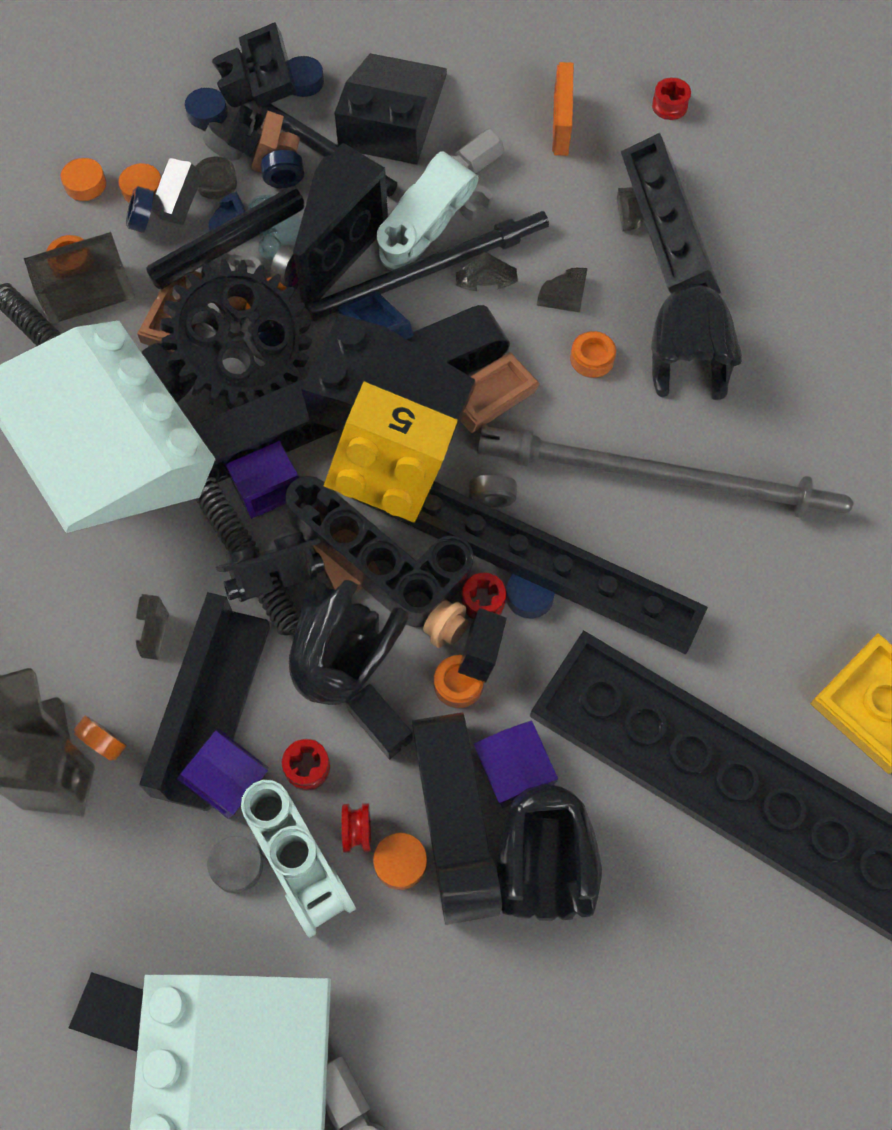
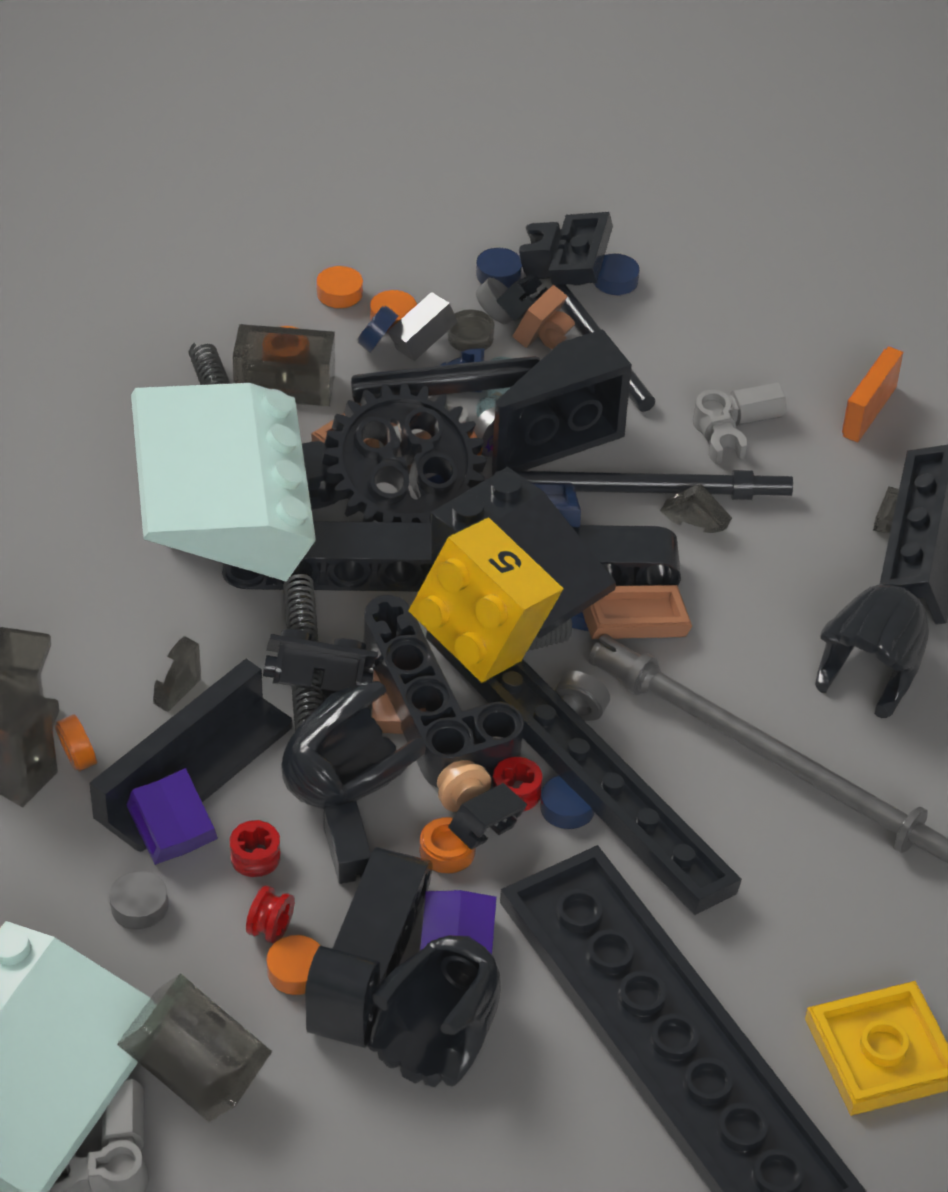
camera: 25 degrees right, 20 degrees down
(262, 478) = (351, 592): dark purple piece -> none
(282, 168) = (538, 340): dark blue tile -> none
(310, 881) = (197, 937): light aqua piece -> none
(372, 1008) = (195, 1048): none -> clear smoke panel
(389, 107) = (686, 330): black slope -> none
(424, 211) = (663, 428): light aqua piece -> none
(564, 291) = (773, 559): clear smoke tile -> none
(593, 354) = (767, 624): orange tile -> none

